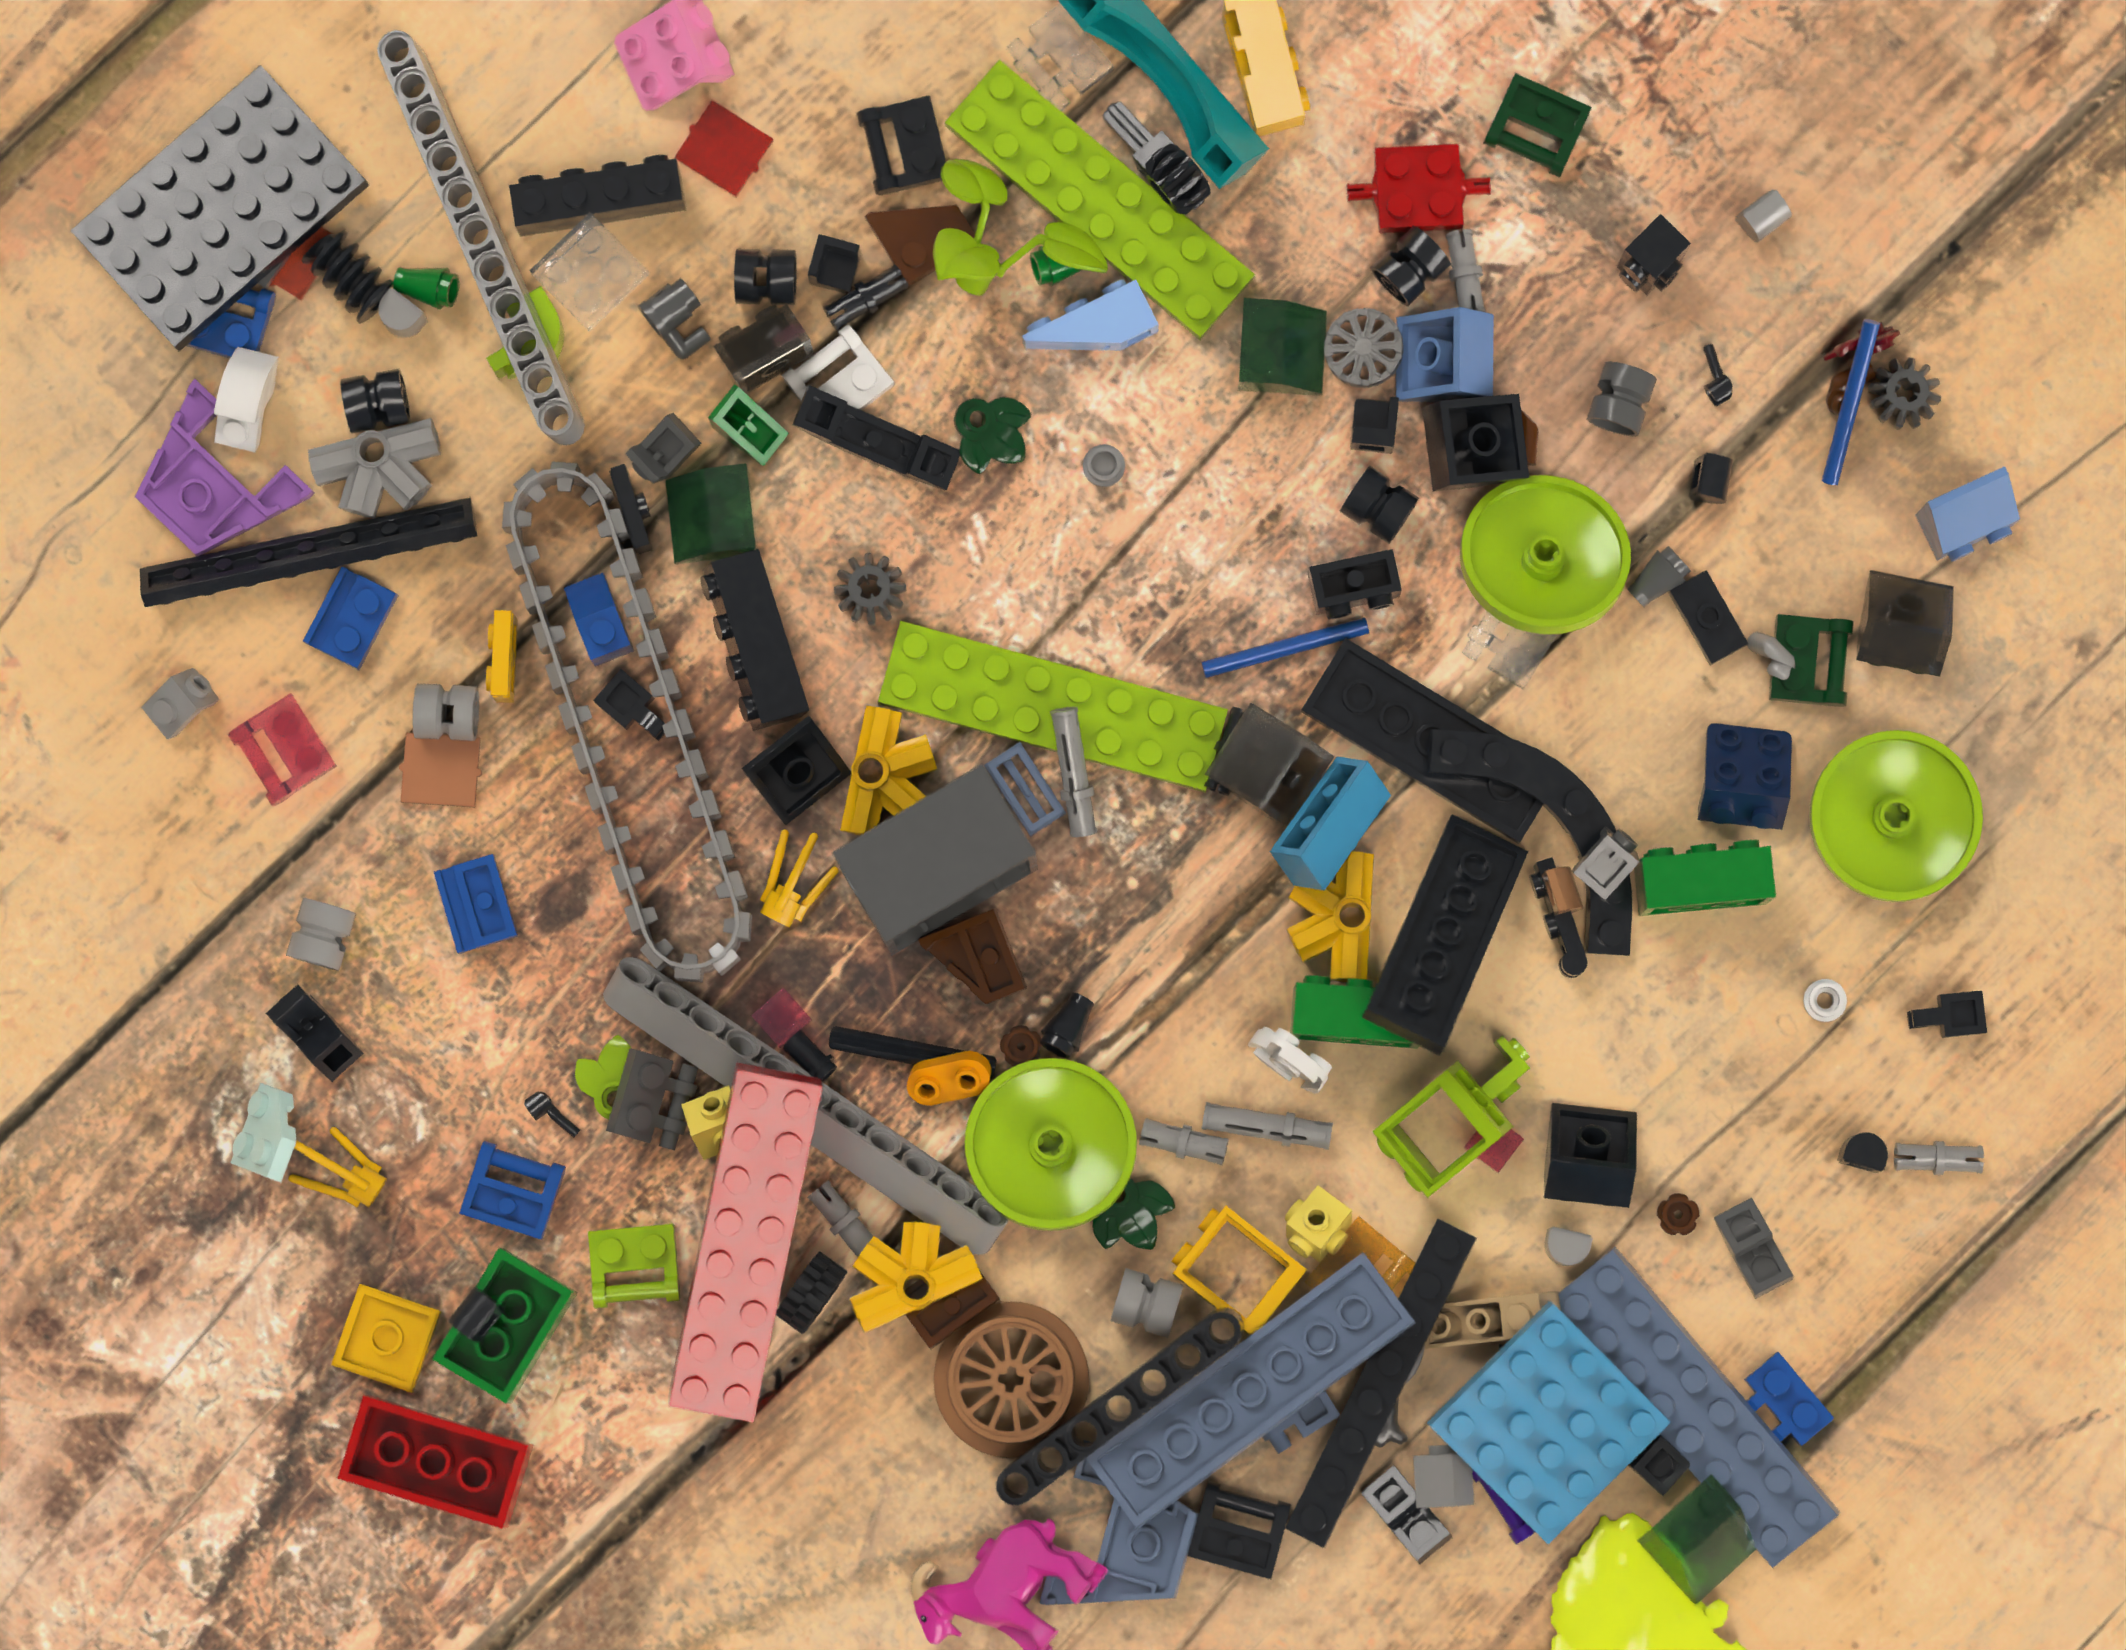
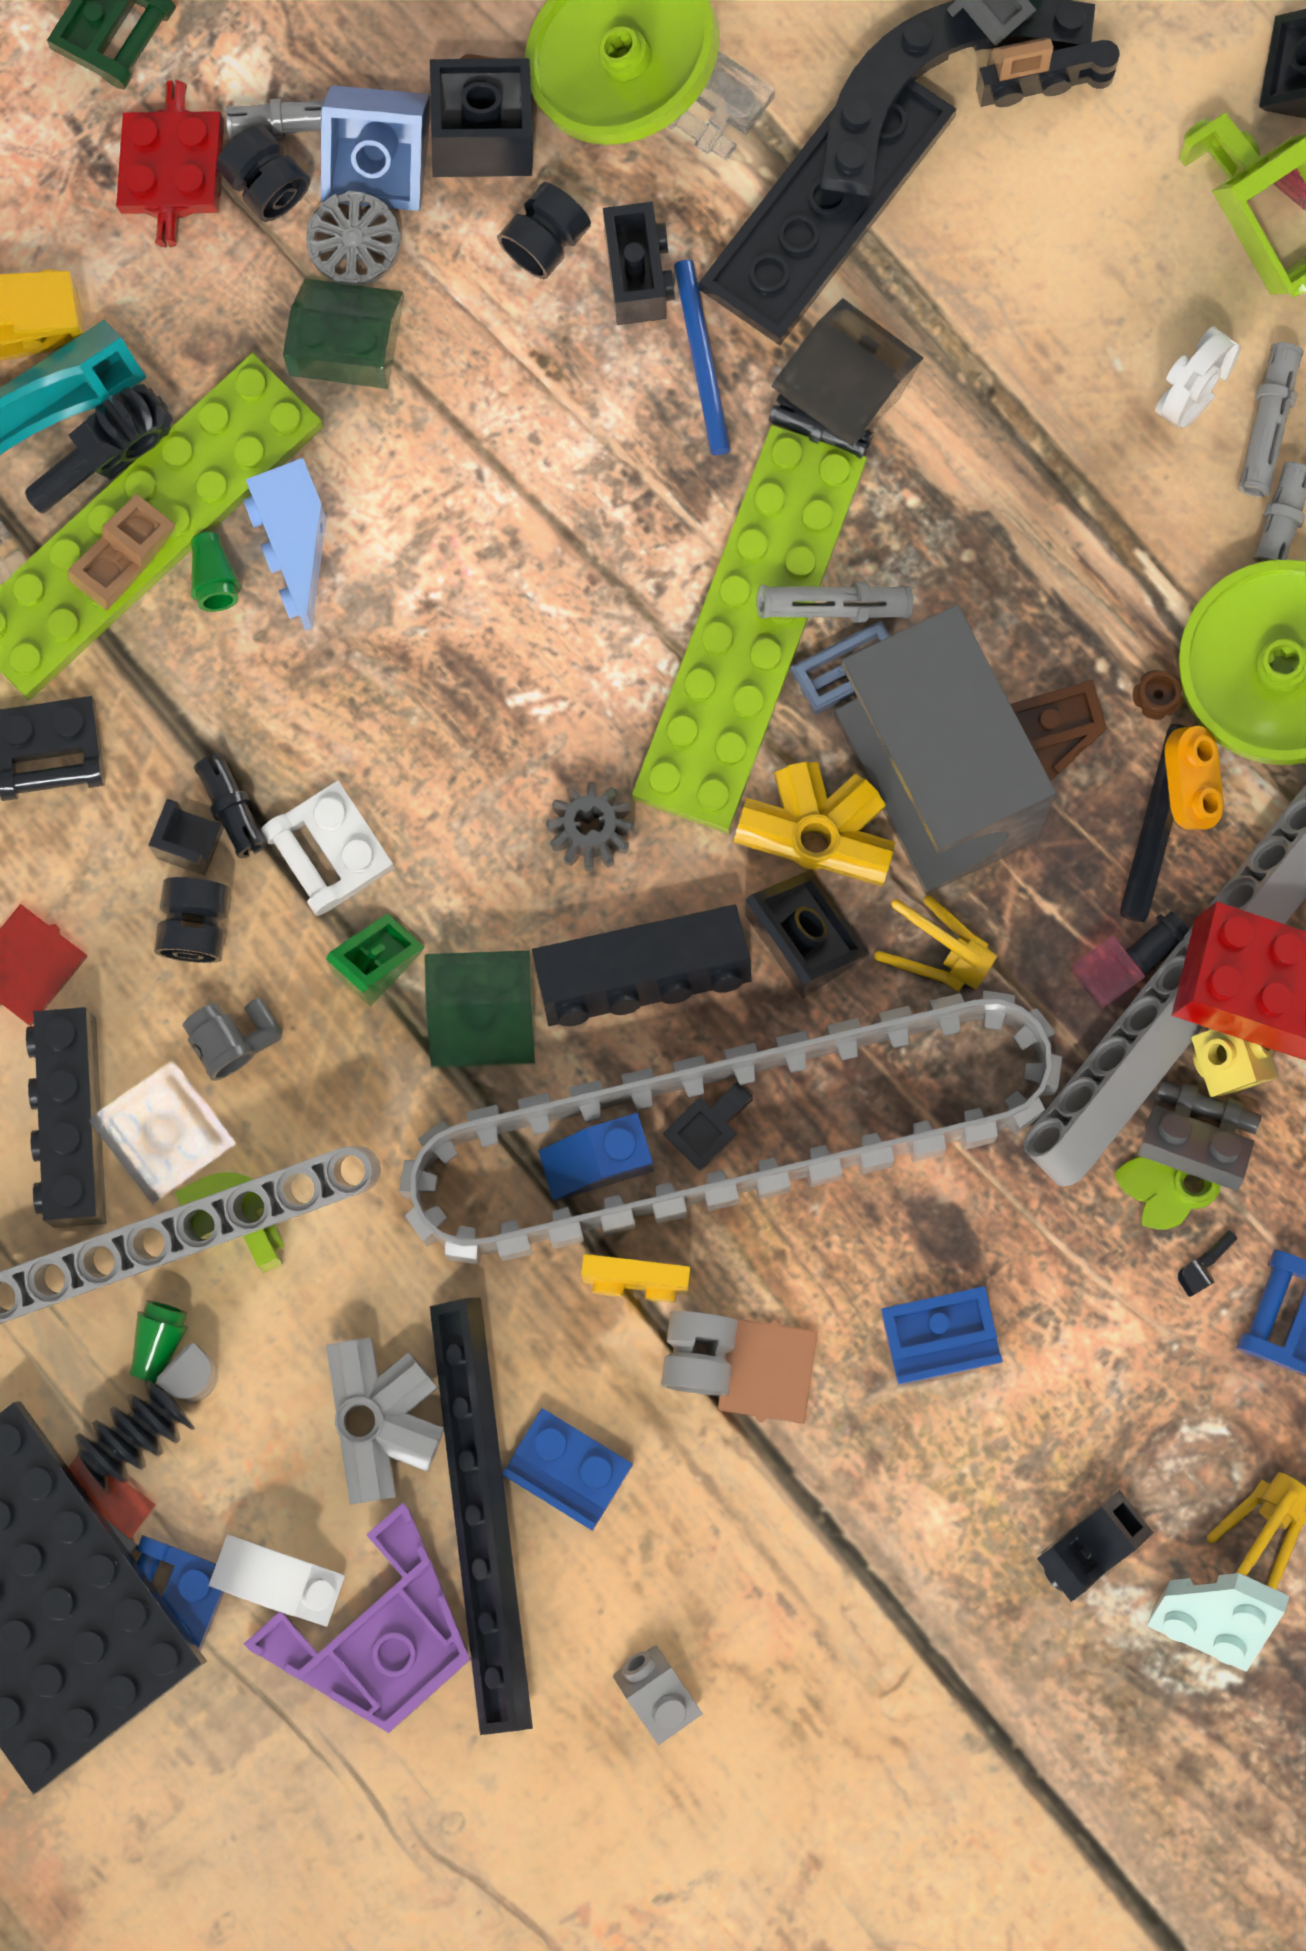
camera: 85 degrees left, 5 degrees down
(294, 742) = (719, 1550): clear pink plate -> none
(321, 934) = (968, 1531): light grey wheel -> none
(375, 400) = (296, 1413): black wheel -> none
(633, 508) = (460, 1100): black plate -> none
(663, 450) = (394, 1061): dark grey bracket -> none
(763, 348) = (280, 928): clear smoke slope -> none
(876, 439) = (409, 802): black slope -> none
(911, 234) = (163, 736): reddish brown wing -> none
(976, 264) = (202, 659): lime plant -> none
(996, 436) = (416, 667): dark green plate -> none
(1066, 1029) = (1140, 638): black cone -> none
(1067, 185) = (122, 552): none -> medium nougat slope
(1103, 465) = (464, 545): light grey plate -> none
(1325, 928) = (1039, 331): yellow piece -> none
(1330, 823) = (923, 306): dark azure brick -> none
(1335, 1014) = (1149, 296): green brick -> none
(1374, 425) = (447, 231): black panel -> none
(1445, 935) = (1071, 181): black plate -> none

